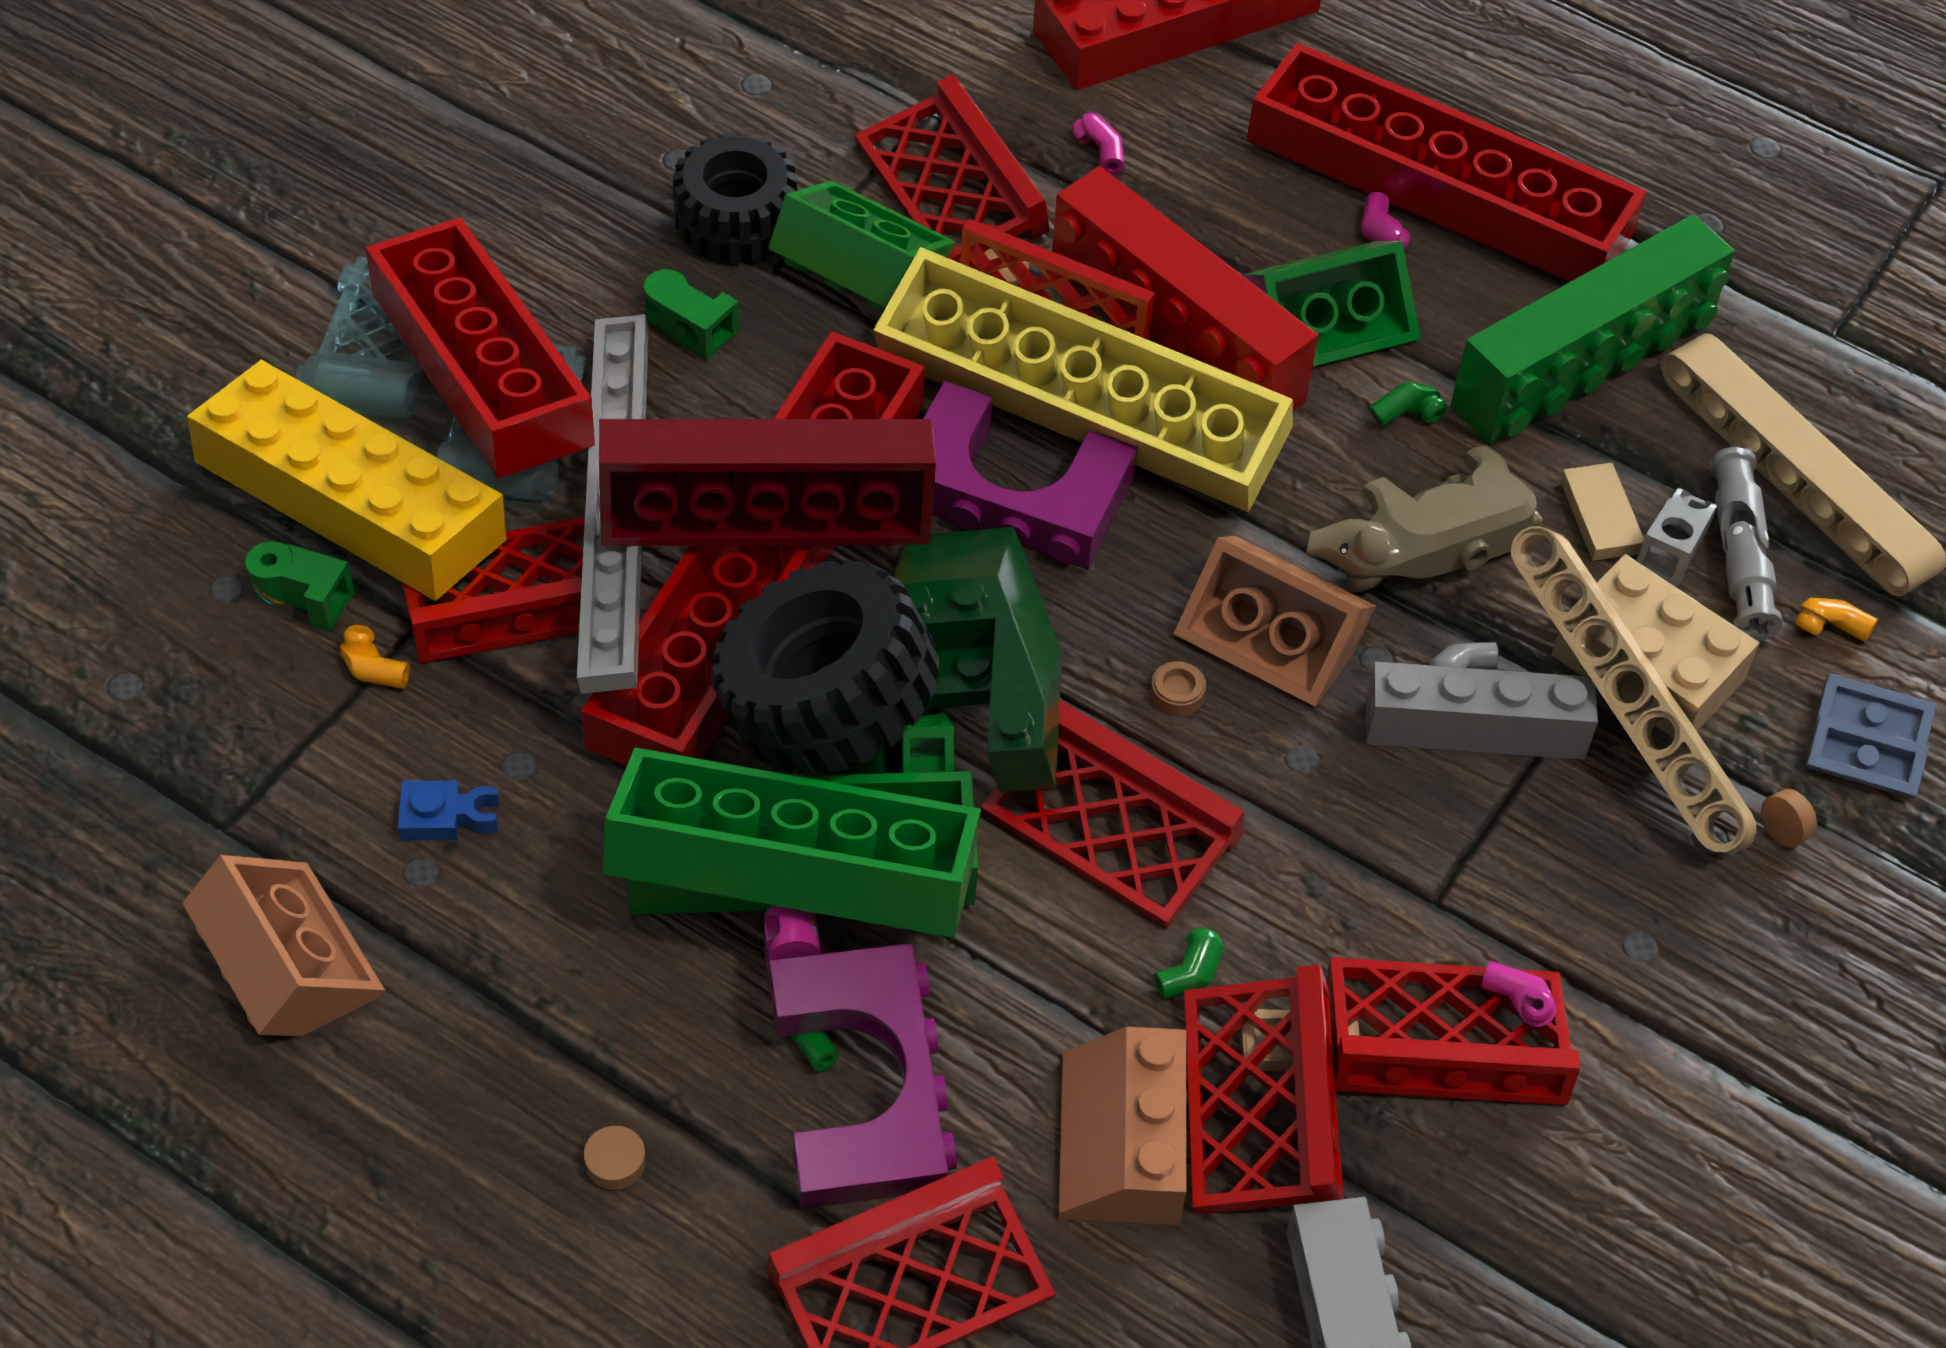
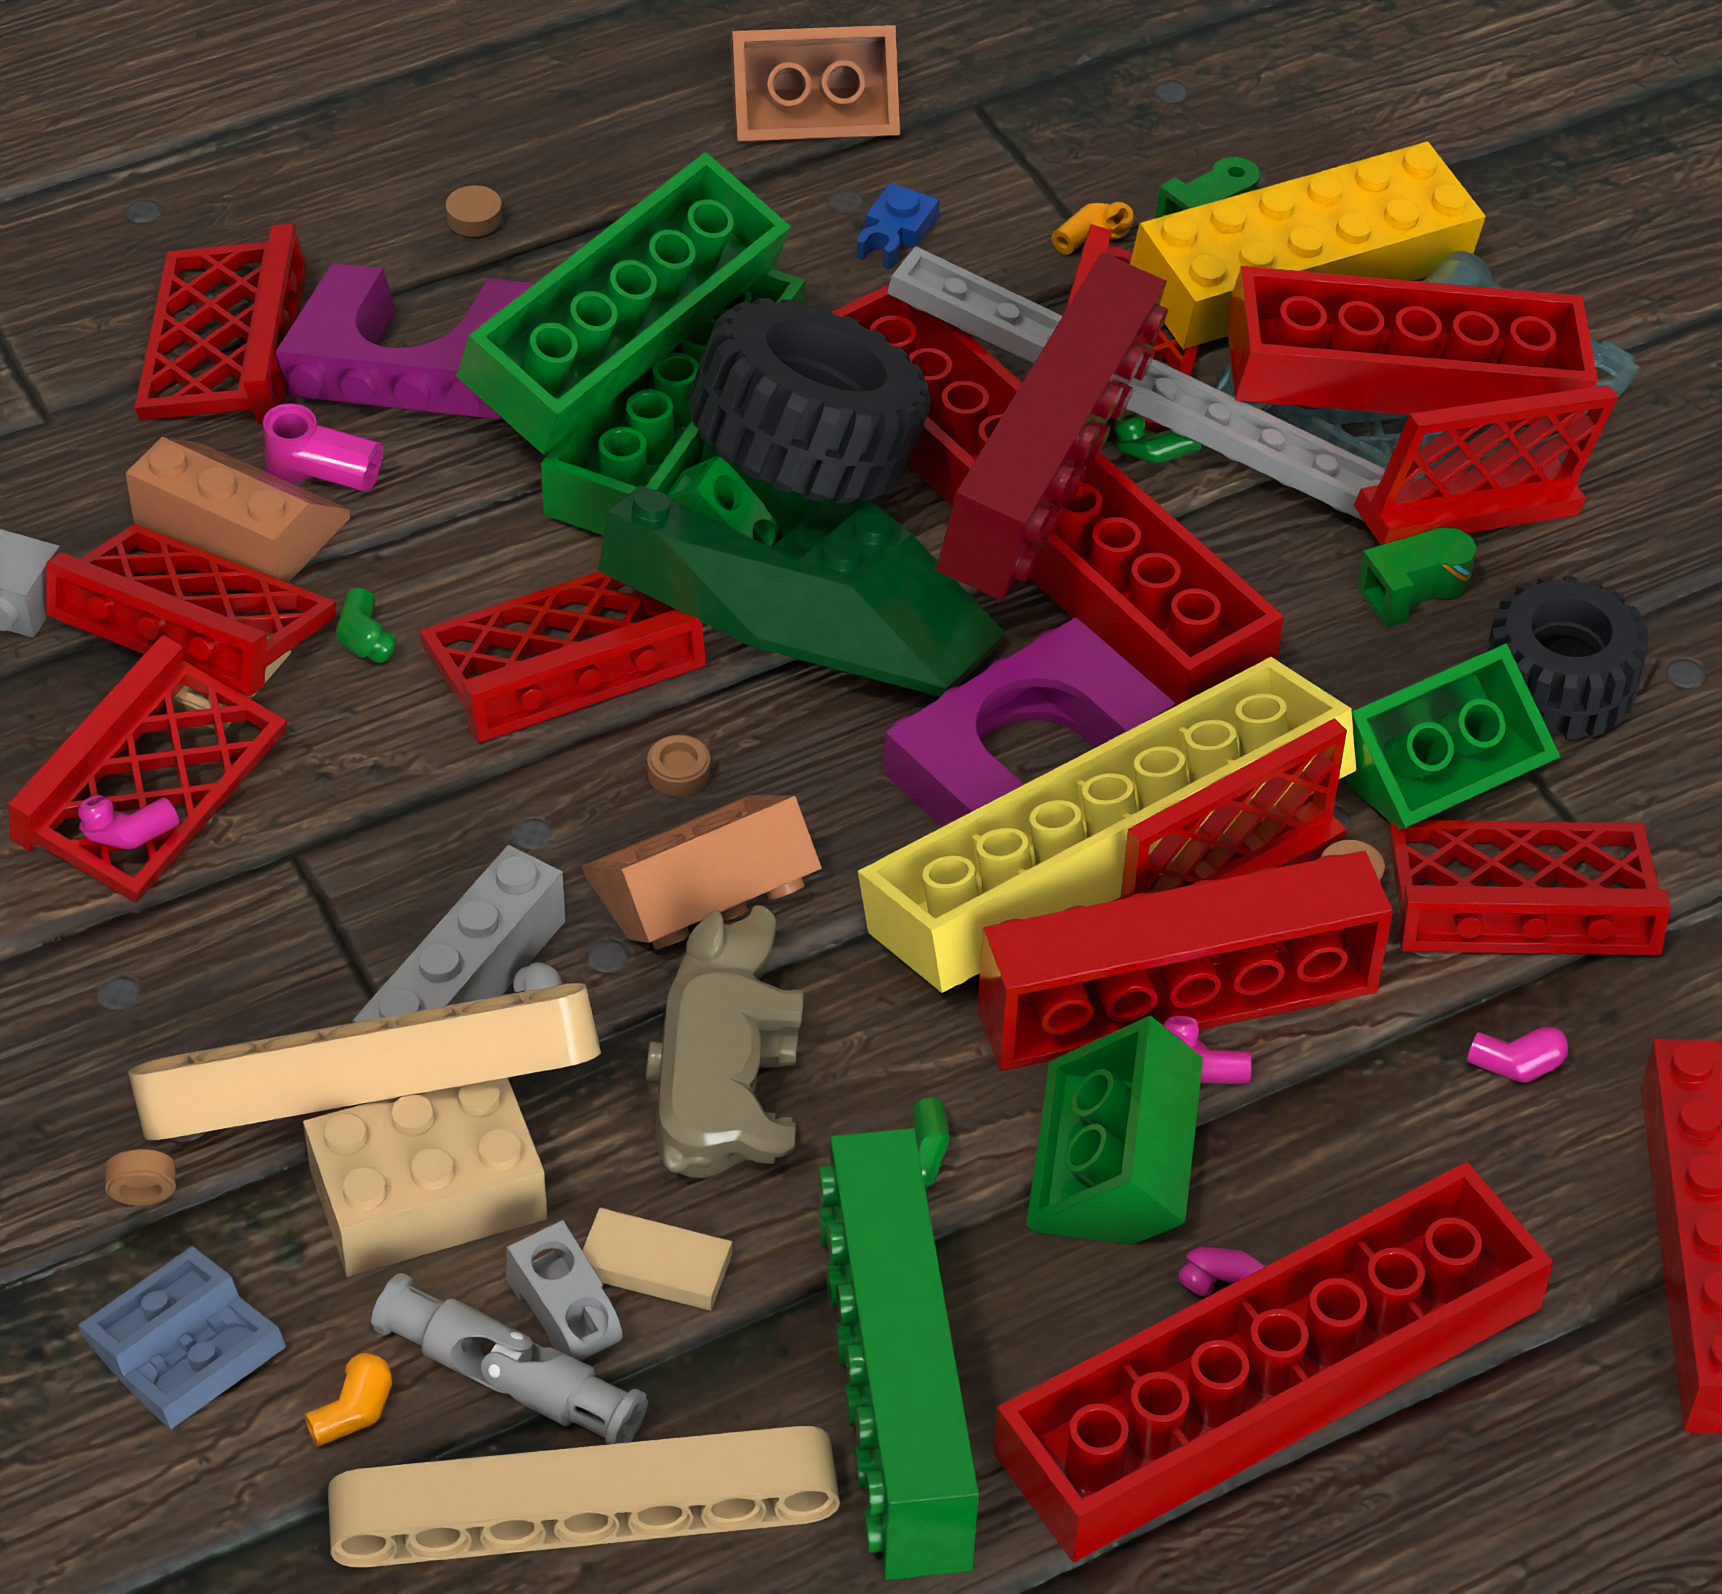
camera: 120 degrees right, 5 degrees down
(577, 281) = (1494, 490): none -> red fence
(1023, 1096) = (302, 449): none -> dark pink piece

